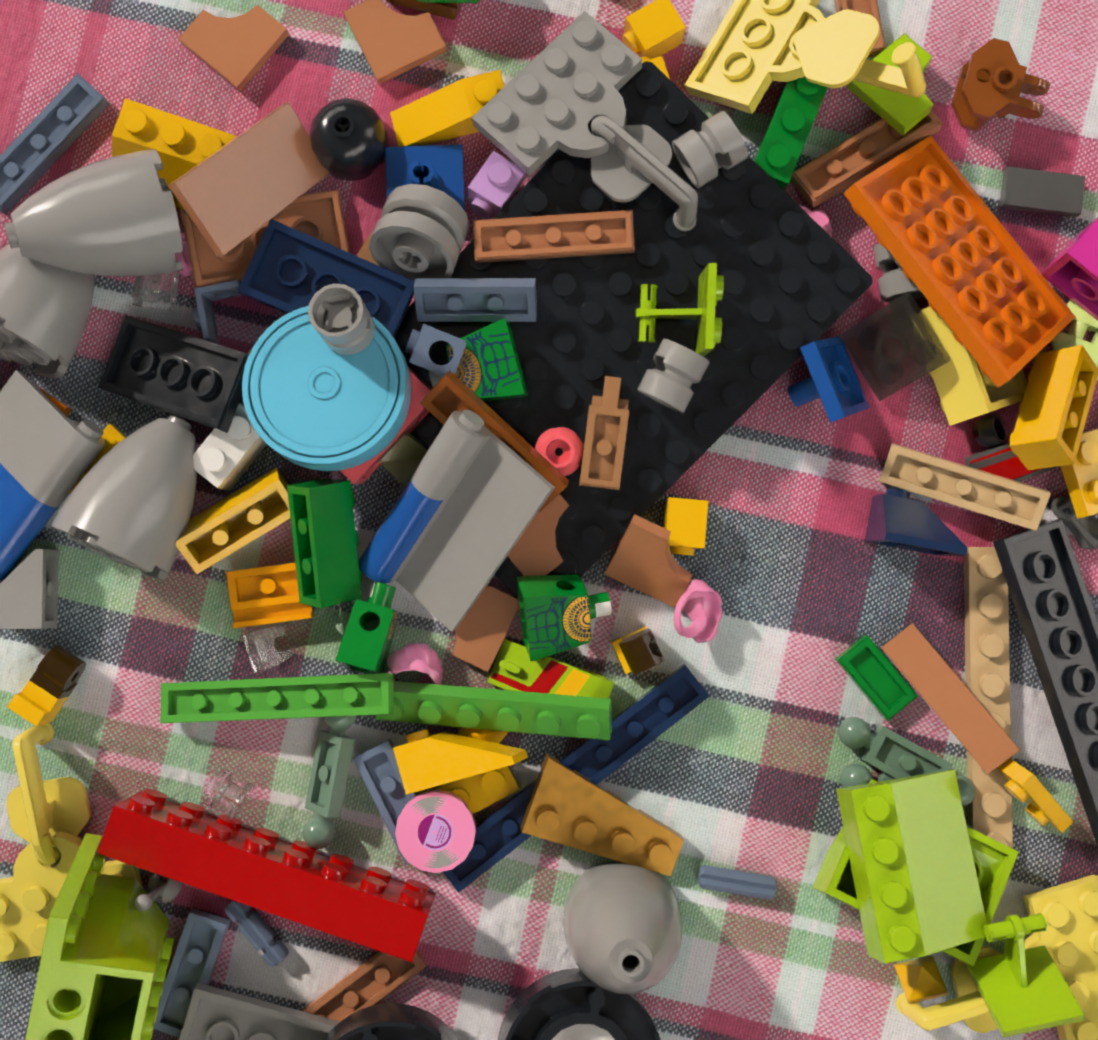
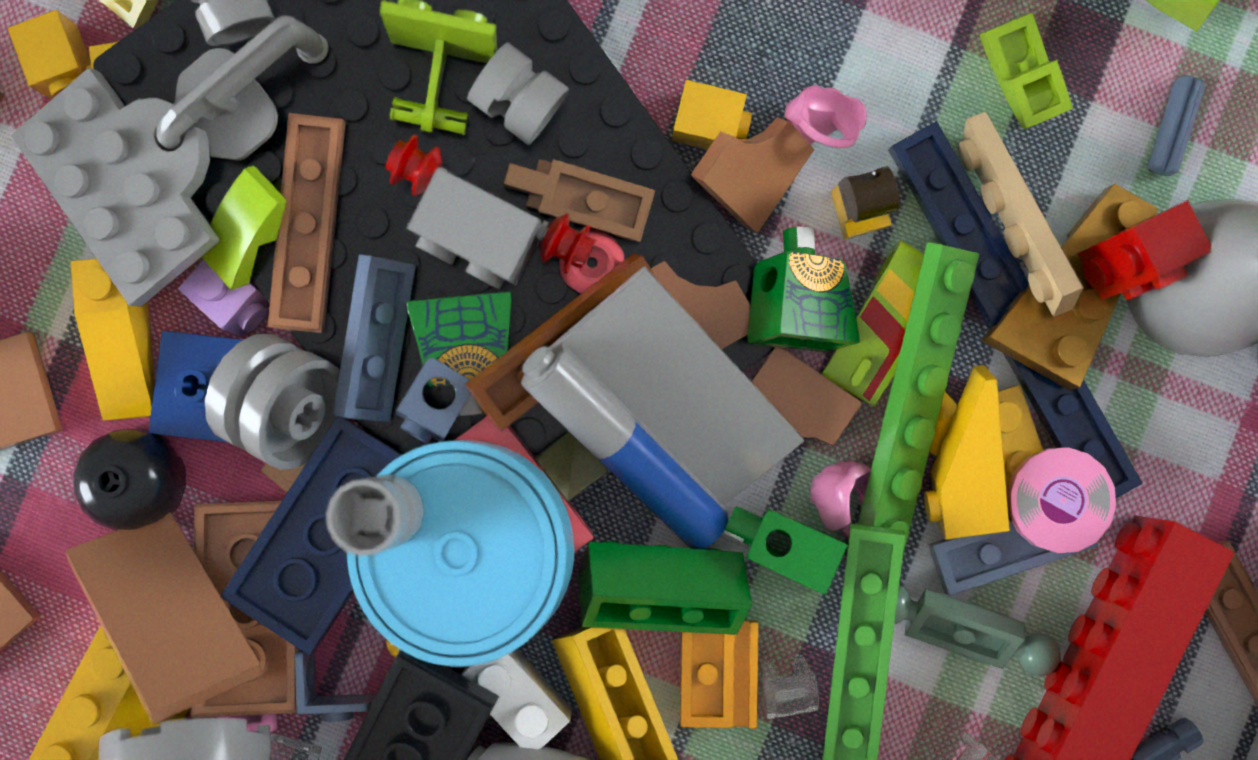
camera: 85 degrees left, 0 degrees up
(546, 190) = (243, 221): none -> lime slope
(567, 361) = (477, 226): none -> light grey brick
(626, 863) = (1146, 254): none -> red brick
(632, 774) = (1025, 229): none -> tan plate
(760, 760) = (1023, 71): none -> lime slope

